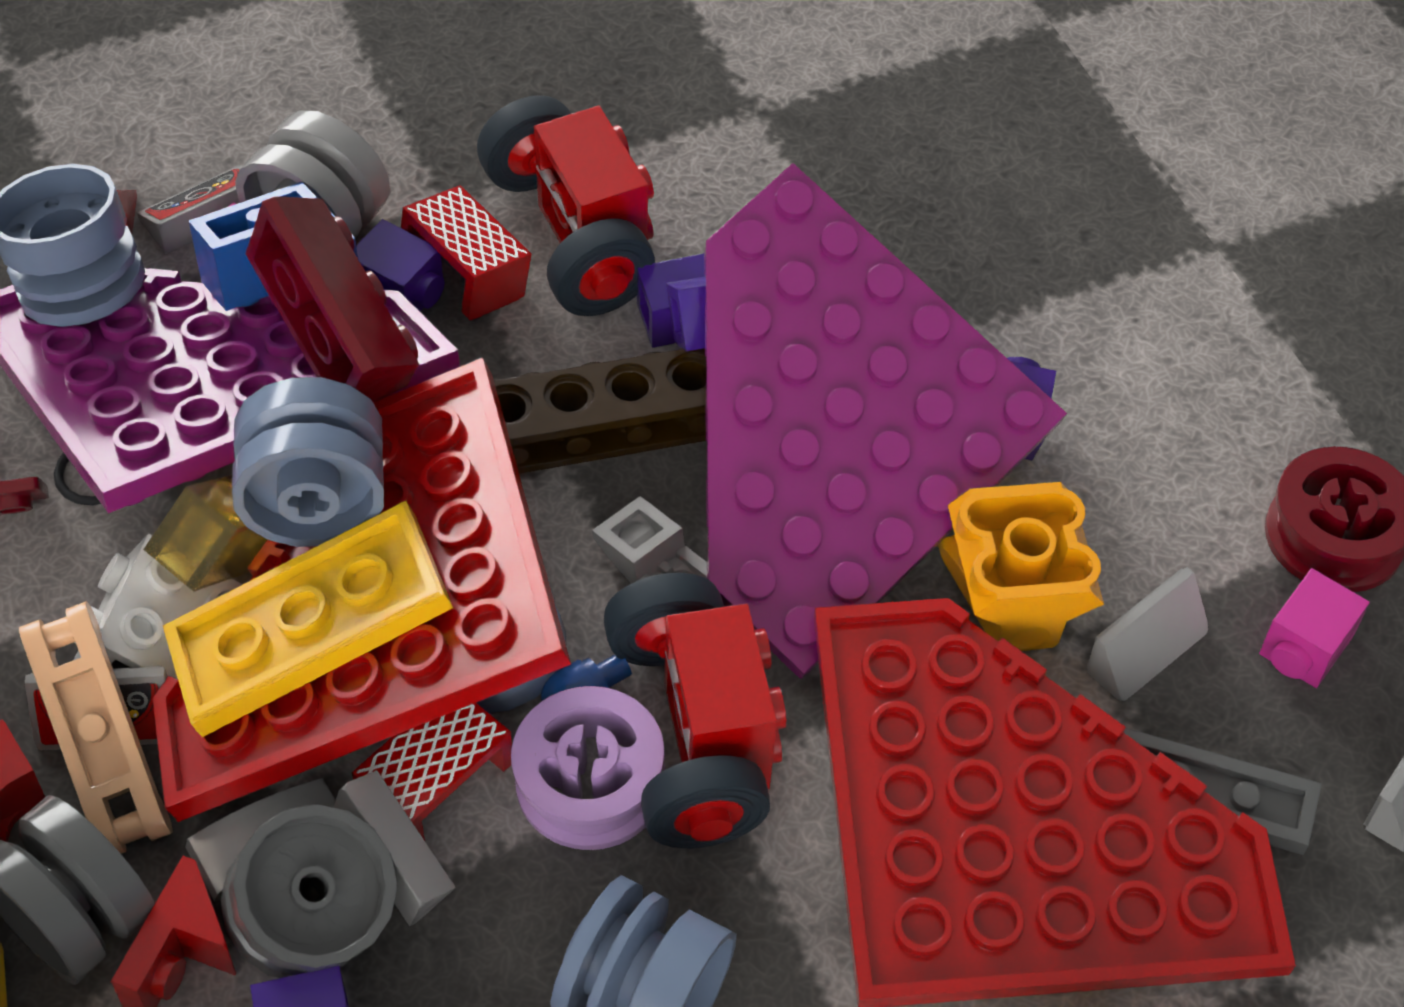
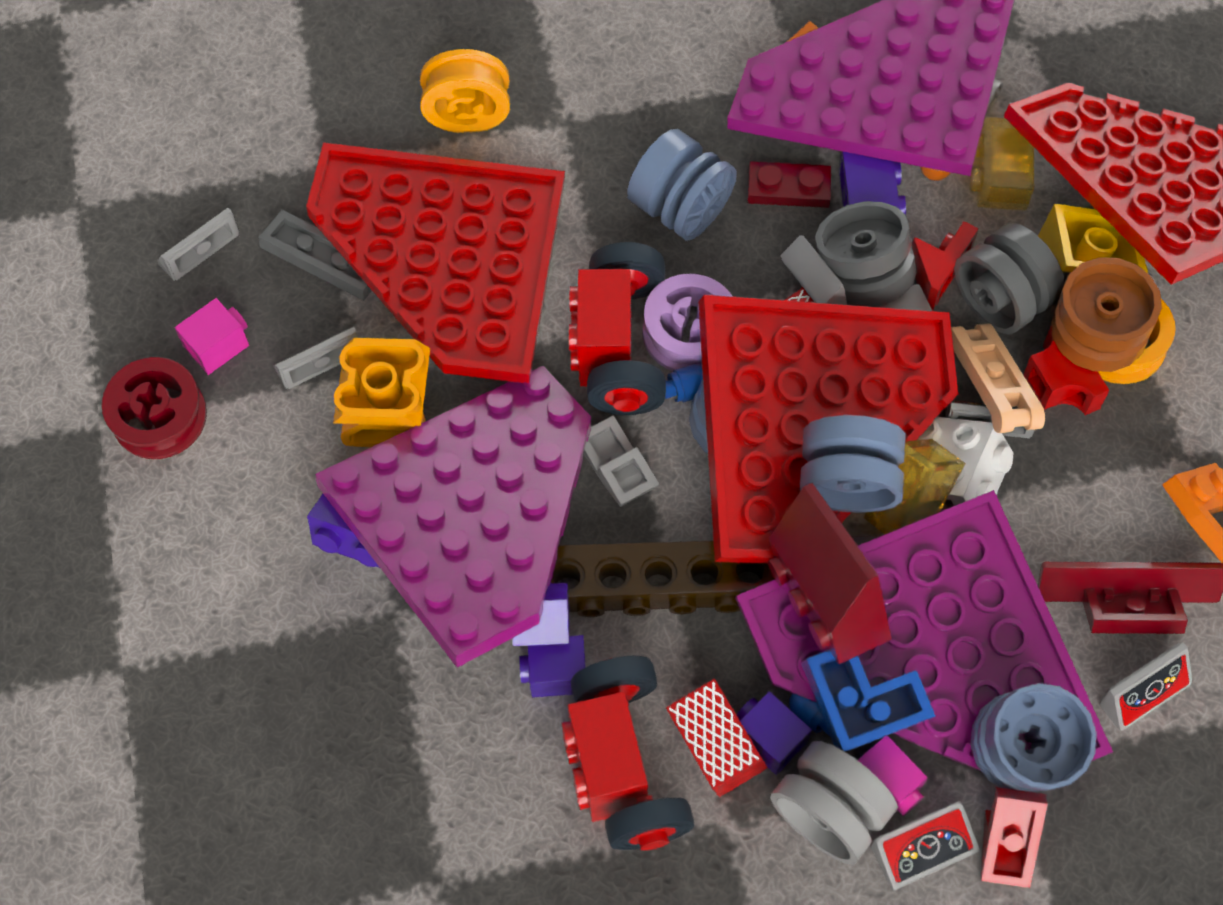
camera: 165 degrees left, 10 degrees up
(305, 618) = (874, 382): yellow tile -> none

